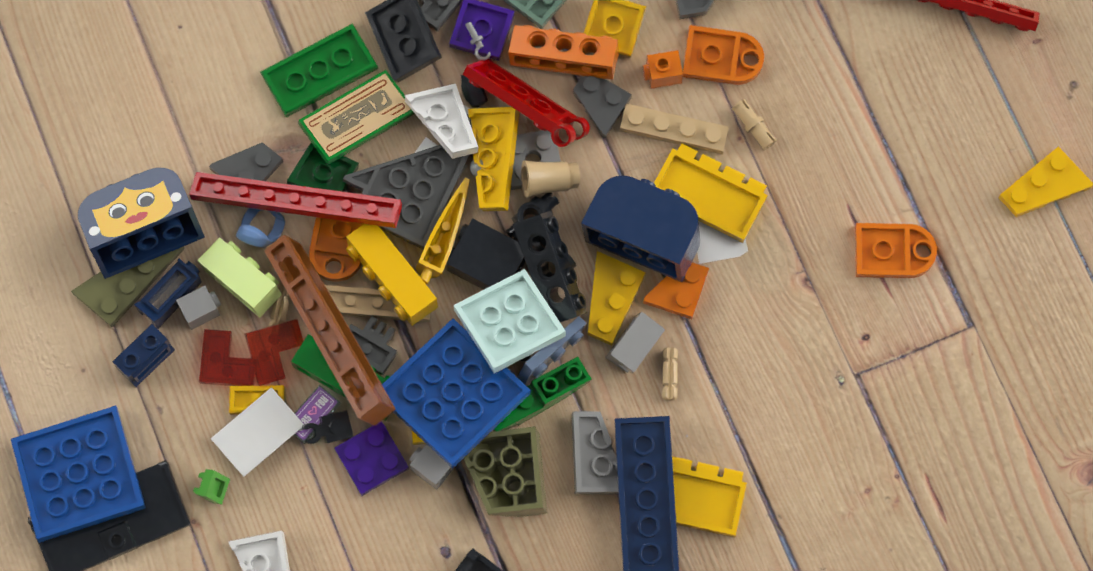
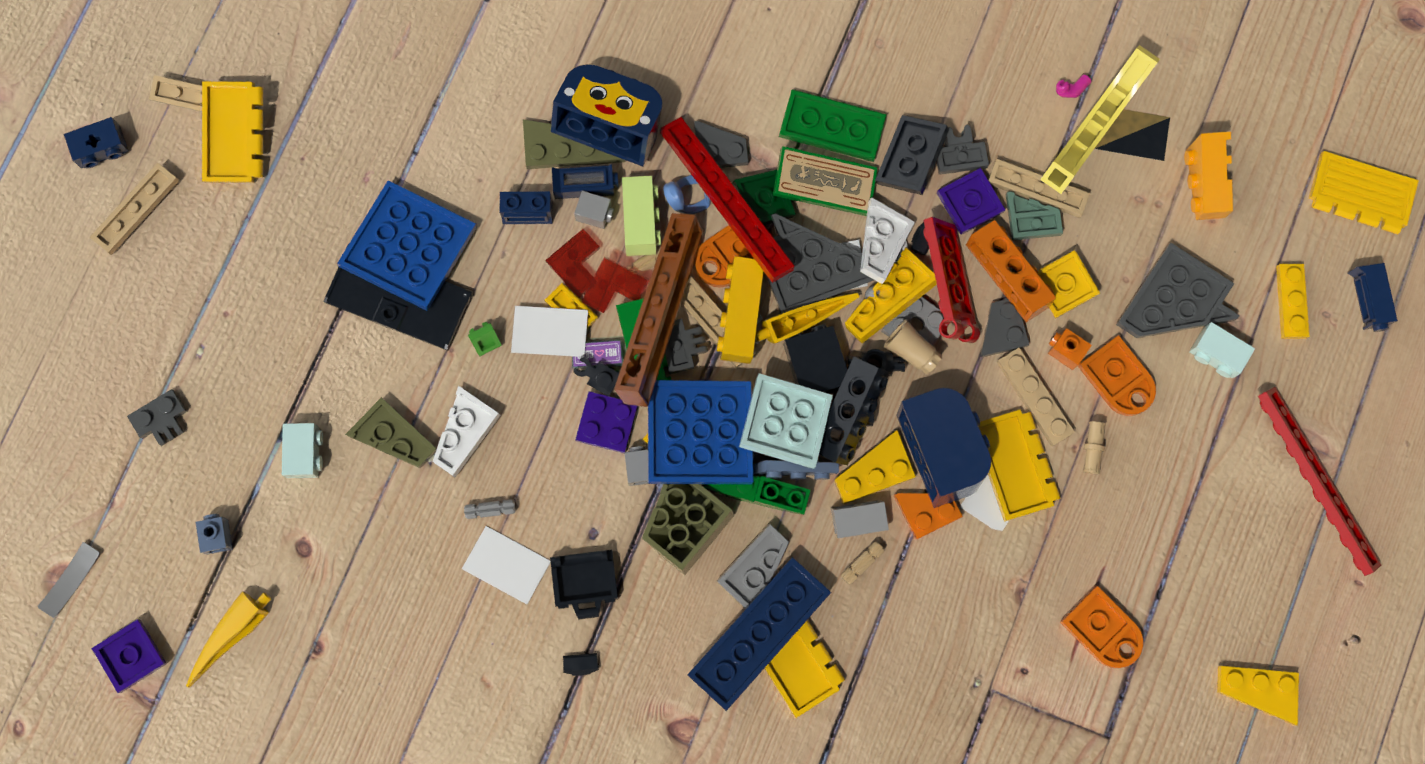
camera: 40 degrees right, 5 degrees up
(476, 40) = (958, 206): light grey hand -> none

